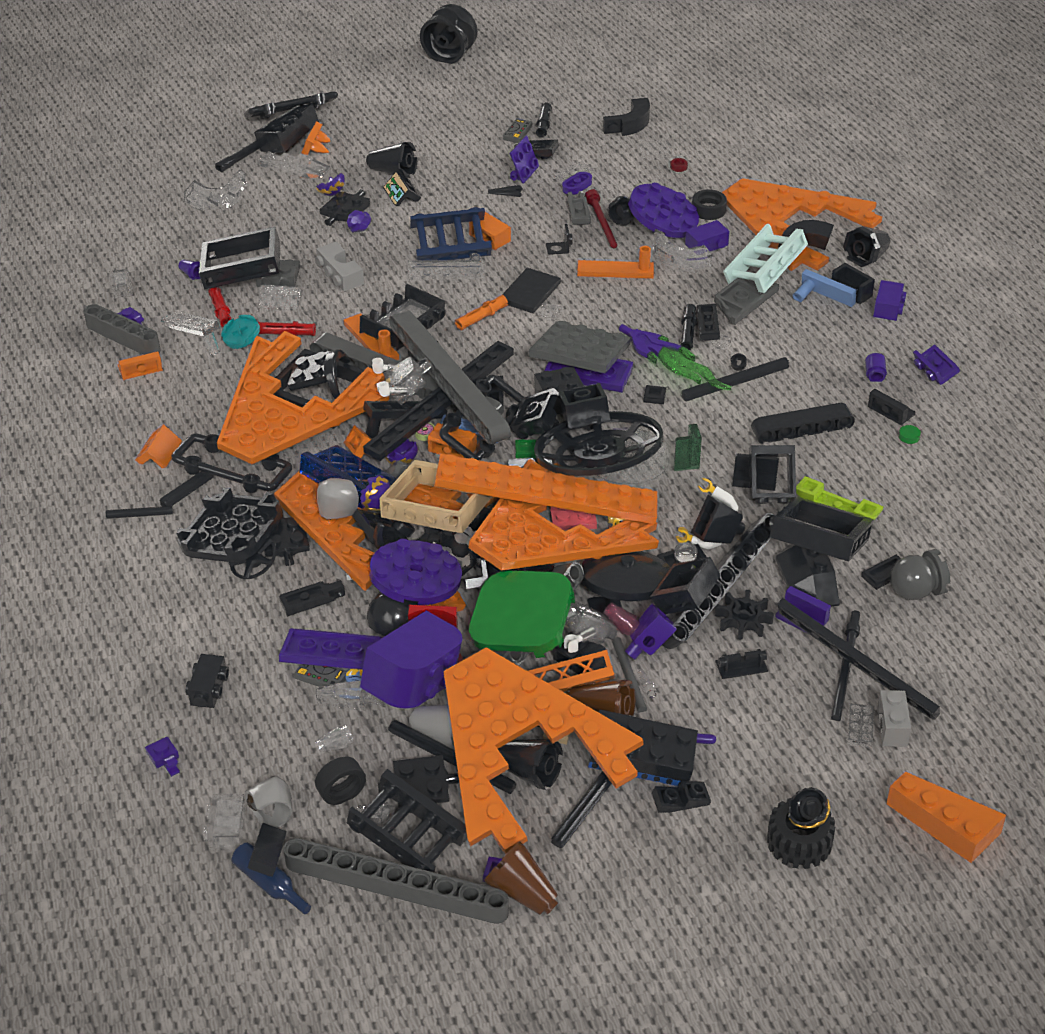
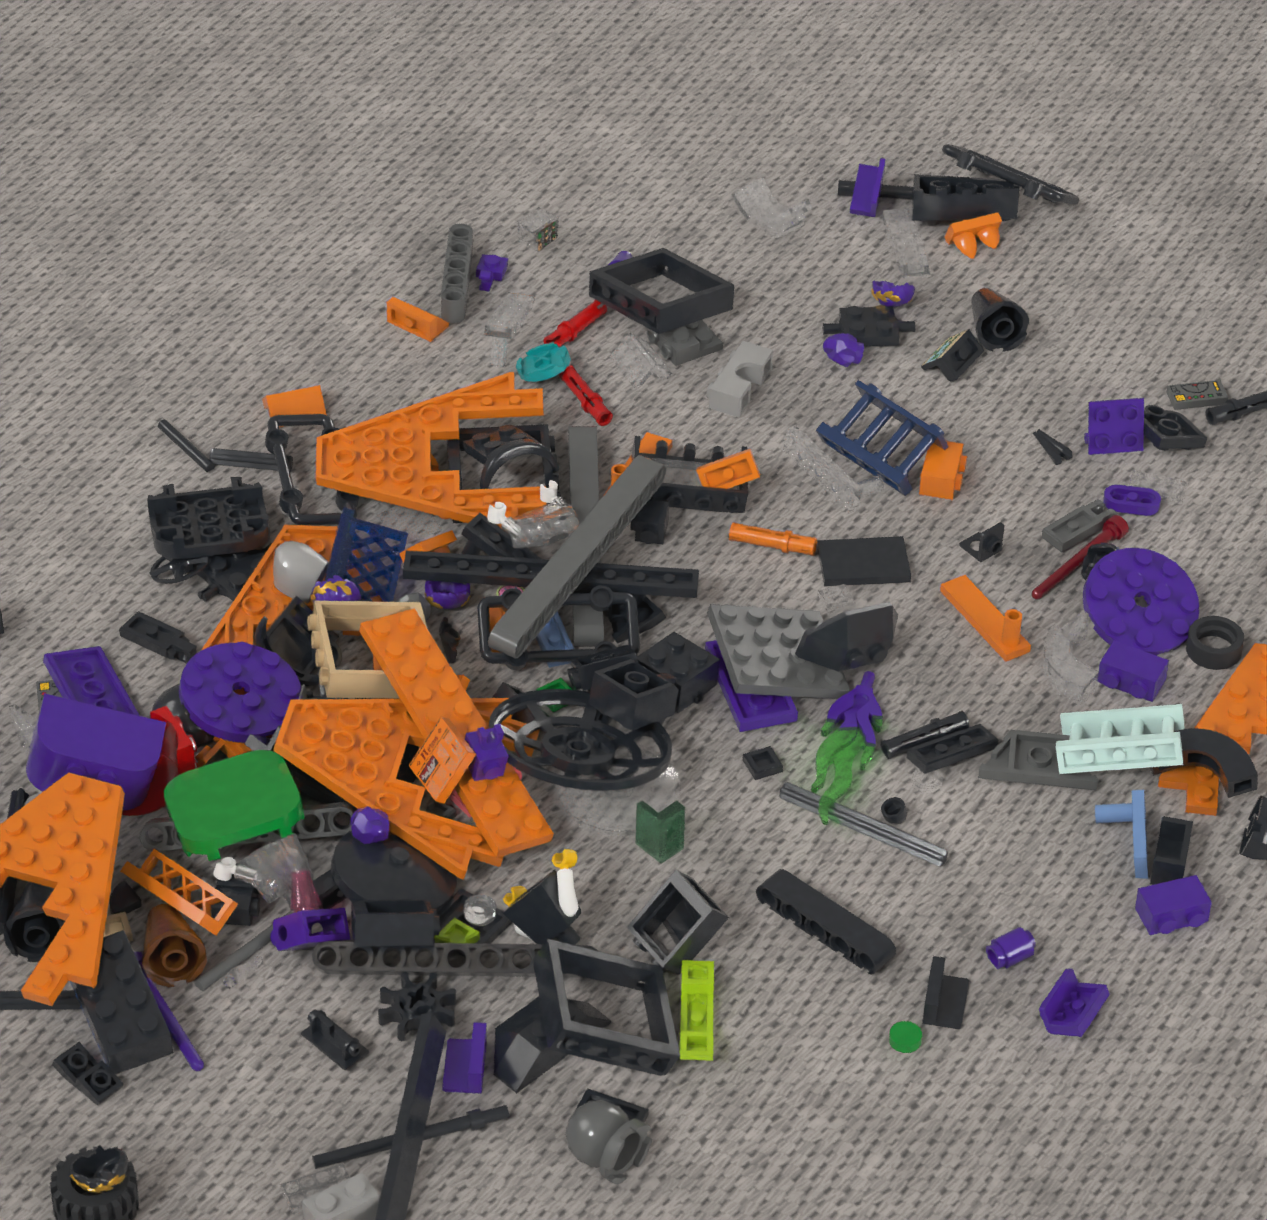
camera: 55 degrees right, 0 degrees up
(240, 153) = (867, 189): none -> dark purple panel
(426, 296) = (729, 471): none -> orange tile
(575, 500) = (442, 760): none -> orange tile
(592, 477) = (490, 753): none -> dark purple brick
(598, 558) = (369, 825): none -> dark purple rock
(604, 311) = (851, 638): none -> black wedge

